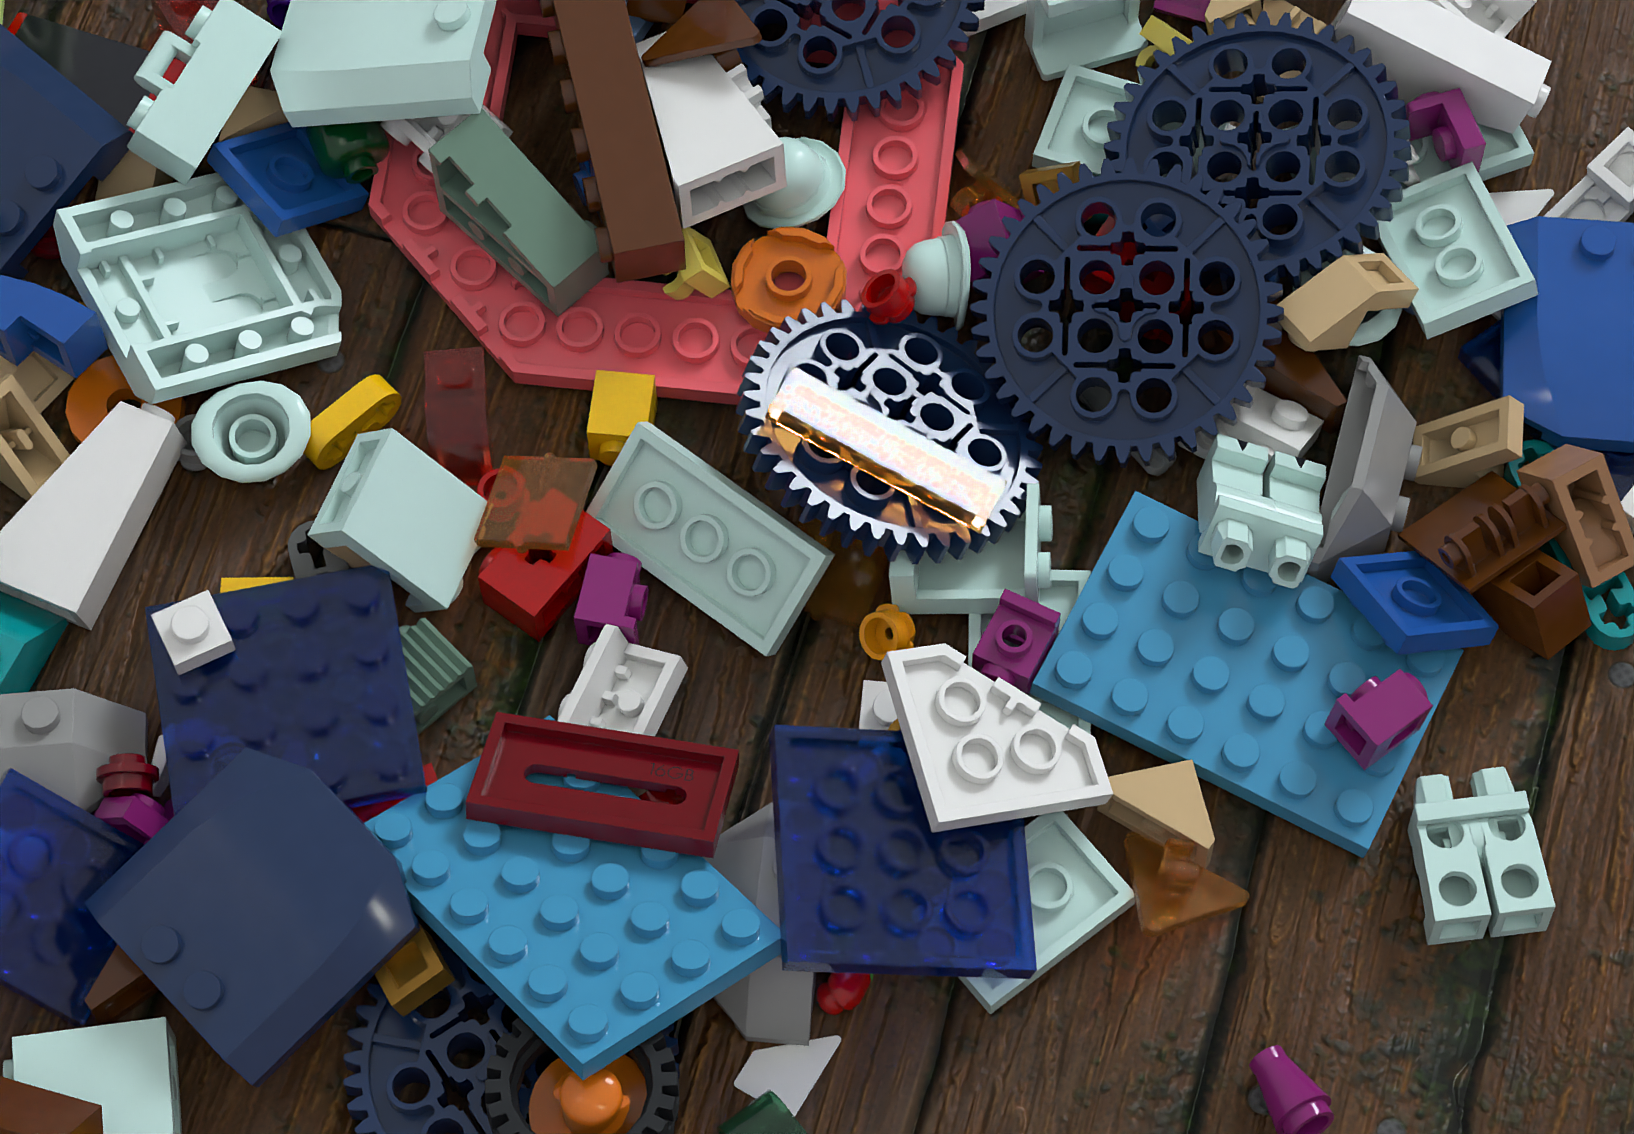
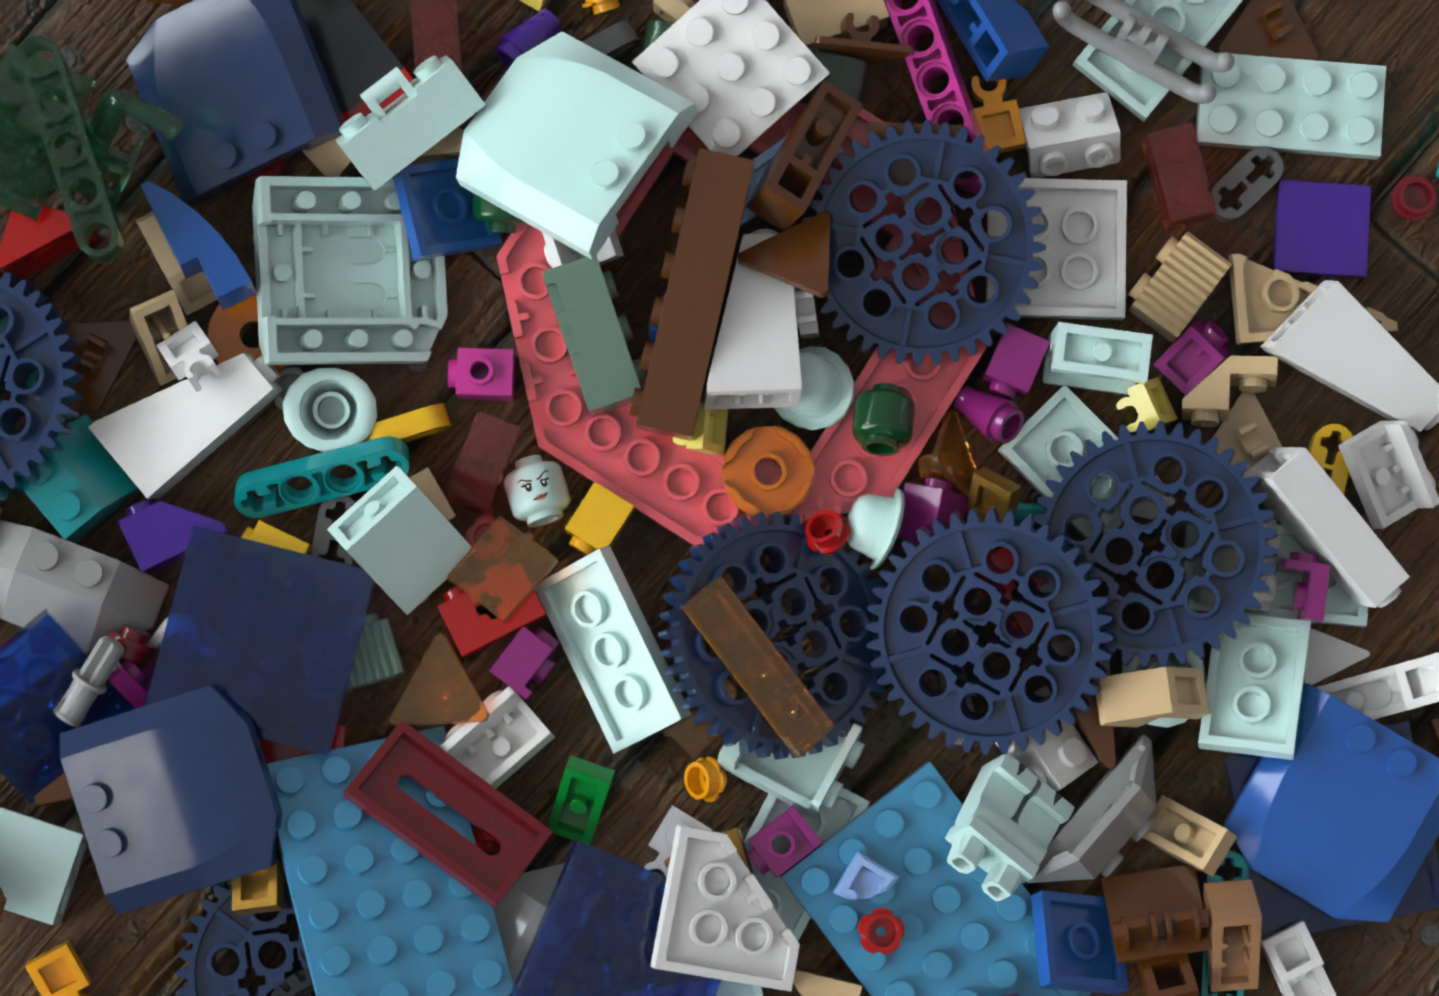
camera: 20 degrees right, 20 degrees up
(58, 435) = (190, 354): none -> white plate
(95, 827) = (89, 681): none -> light grey axle
(108, 652) = (162, 532): none -> dark purple slope
(193, 632) = (215, 569): white plate -> none
(266, 499) = (318, 470): none -> teal beam
(411, 324) = (483, 374): none -> dark pink brick
(528, 668) = (440, 691): none -> clear orange piece
(535, 416) = (537, 491): none -> light aqua head
(750, 708) = (580, 800): none -> green slope
(890, 167) = (883, 419): none -> dark green head
(1003, 61) = (1015, 363): none -> magenta brick
(1007, 123) = (991, 415): none -> magenta cone
(1131, 636) = (864, 879): none -> light blue tile
(1184, 667) = (893, 931): none -> red plate

